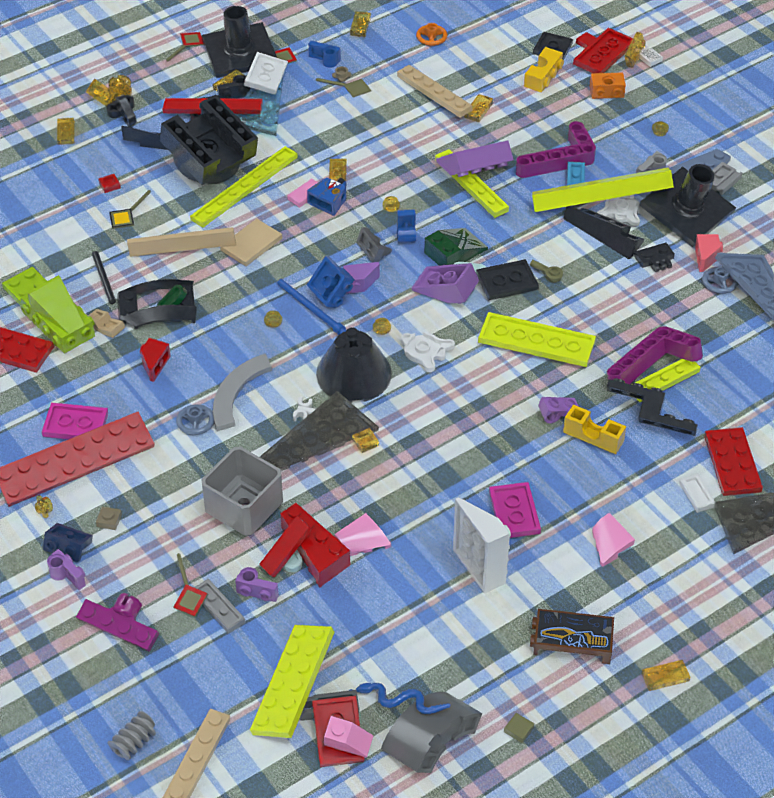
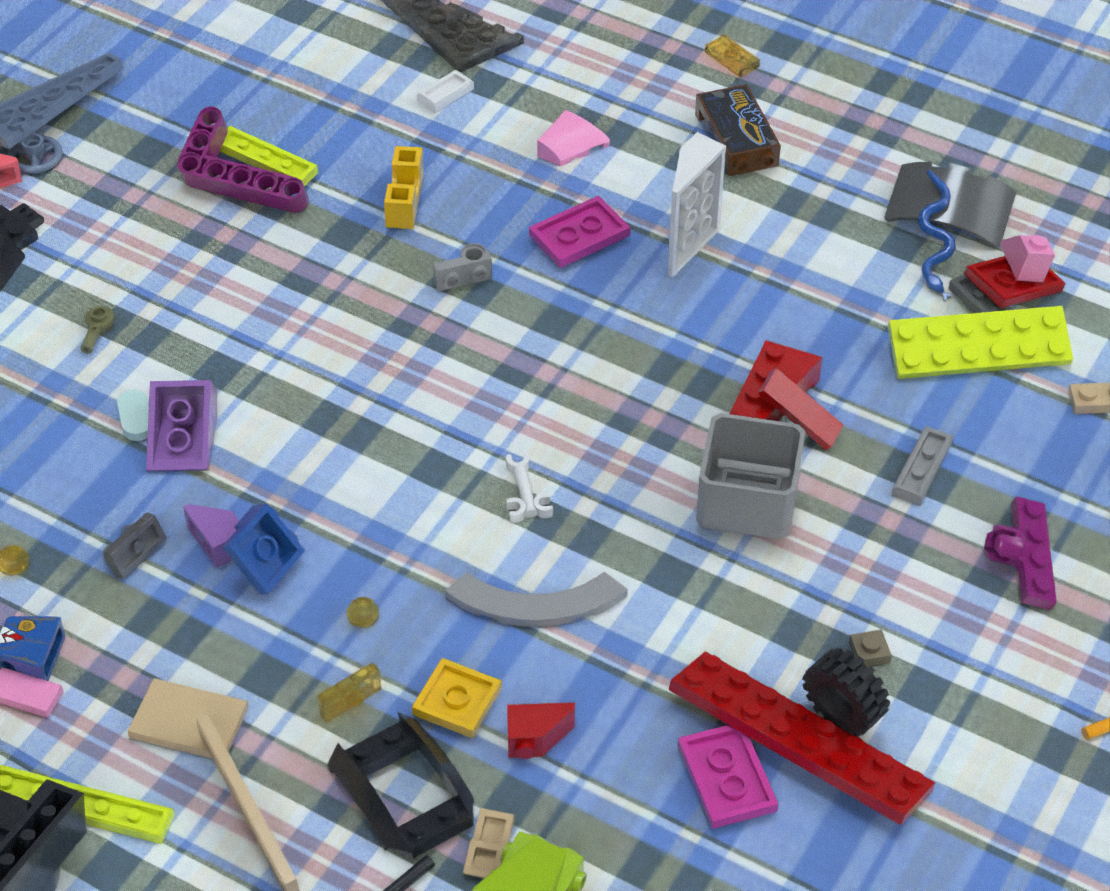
camera: 115 degrees left, 0 degrees up
(43, 506) = (910, 731): clear yellow plate -> none
(62, 567) = (997, 654): medium lavender plate -> none
(67, 540) = (946, 671): dark blue bracket -> none
(76, 474) = (846, 691): none -> black tyre
(174, 296) = (398, 757): dark green tile -> none
(190, 597) = (935, 493): piece -> none
(194, 336) = (457, 697): none -> yellow plate
(195, 415) = (623, 621): sand blue piece -> none
(223, 297) = (349, 692): none -> clear yellow plate
(249, 585) = (871, 435): medium lavender plate -> none
(319, 432) = (556, 461): clear smoke wing -> none
(338, 328) = (339, 526): blue bar -> none
(354, 367) = (420, 471): black cone -> none
(362, 536) = (716, 358): bright pink slope -> none
(365, 440) = (551, 411): clear yellow plate -> none
(381, 326) = (310, 473): clear yellow plate -> none
(406, 226) = (80, 507): blue plate -> none
(425, 349) = (329, 413): white tile -> none
(452, 246) = (93, 445): dark green slope -> none
(507, 279) = (138, 359): black tile -> none
(510, 442) = (470, 268): none -> light grey plate
(519, 727) = (886, 145): olive tile -> none
(537, 339) = (252, 298): neon yellow plate -> none
(554, 407) = (380, 238): medium lavender plate -> none
(652, 406) = (333, 146): black bracket -> none
(733, 461) = (374, 73): red plate -> none

